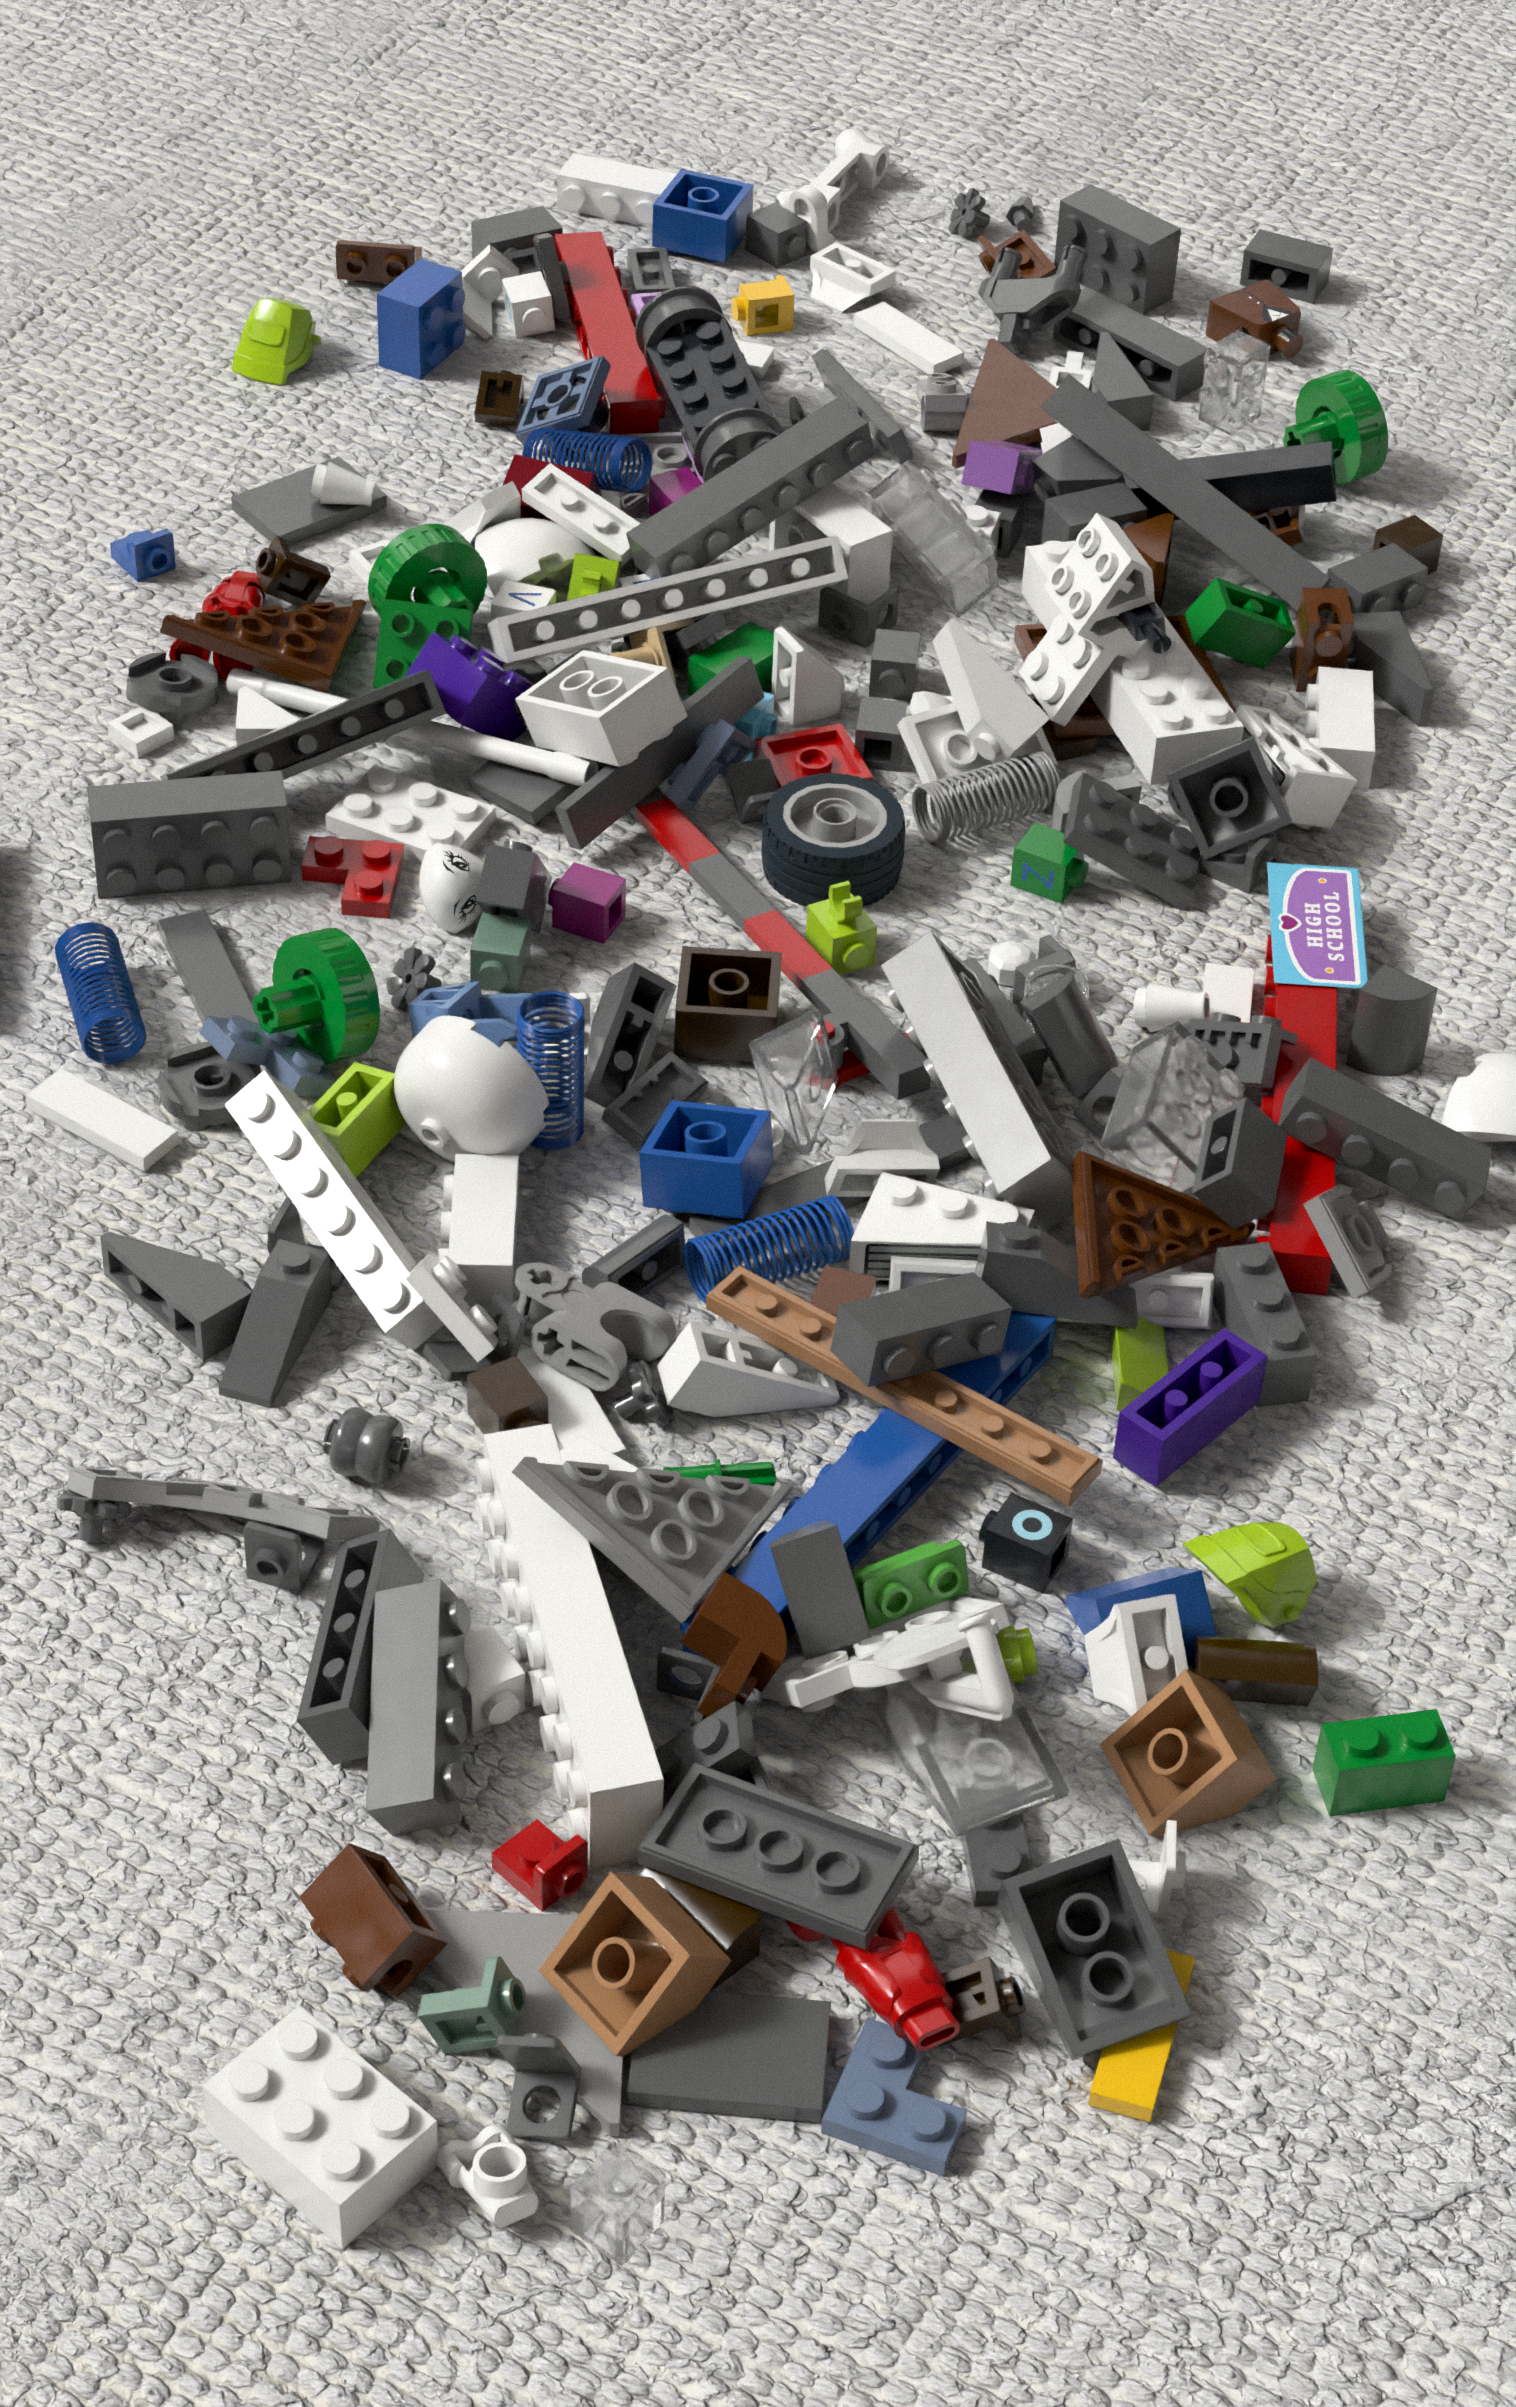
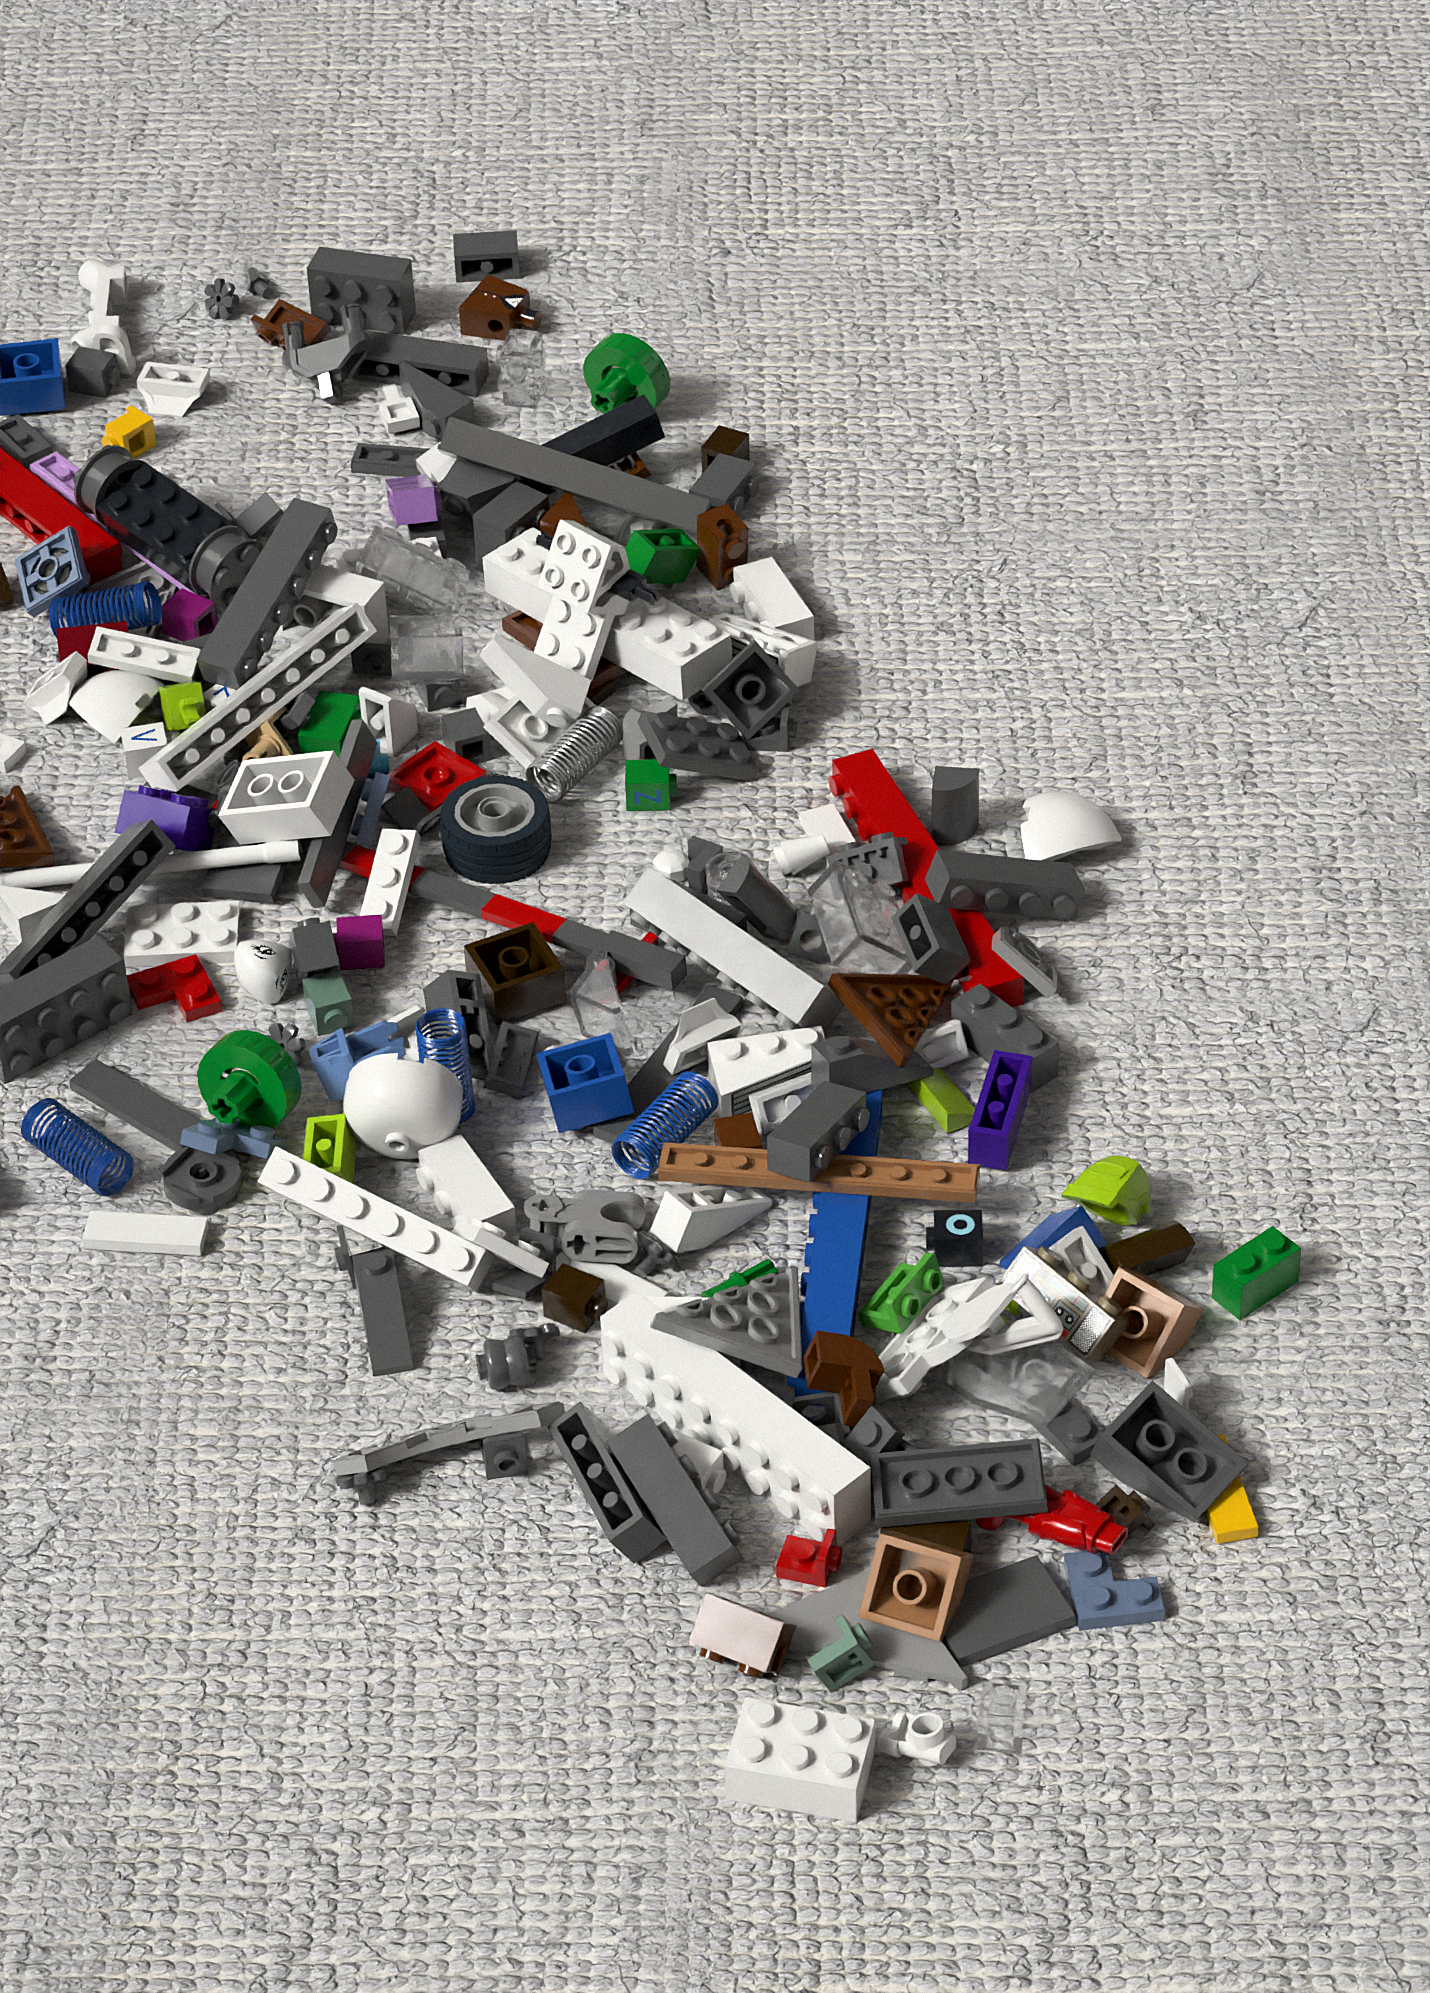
camera: 25 degrees left, 0 degrees up
(182, 1292) = (303, 1321): dark grey slope -> none
(406, 630) = (94, 802): green bracket -> none
(417, 551) = (74, 755): green piece -> none
(425, 1433) = (536, 1336): none -> dark grey plant
(539, 2064) = (905, 1663): dark grey bracket -> none
(642, 1259) = (585, 1165): dark grey brick -> none
(670, 846) = (391, 877): none -> white plate
(819, 1588) = (868, 1315): dark grey brick -> none
(842, 930) = (549, 888): lime brick -> none
(852, 394) = (251, 483): tile -> none
(891, 617) = (426, 648): none -> clear slope
(908, 339) = (251, 420): white tile -> none
(941, 403) = (319, 463): light grey plate -> none
(1004, 403) = (372, 448): tile -> none
(1091, 1685) = (1088, 1321): none -> brick
(1316, 925) = (861, 756): sticker -> none
(1399, 677) = (773, 539): dark grey slope -> none

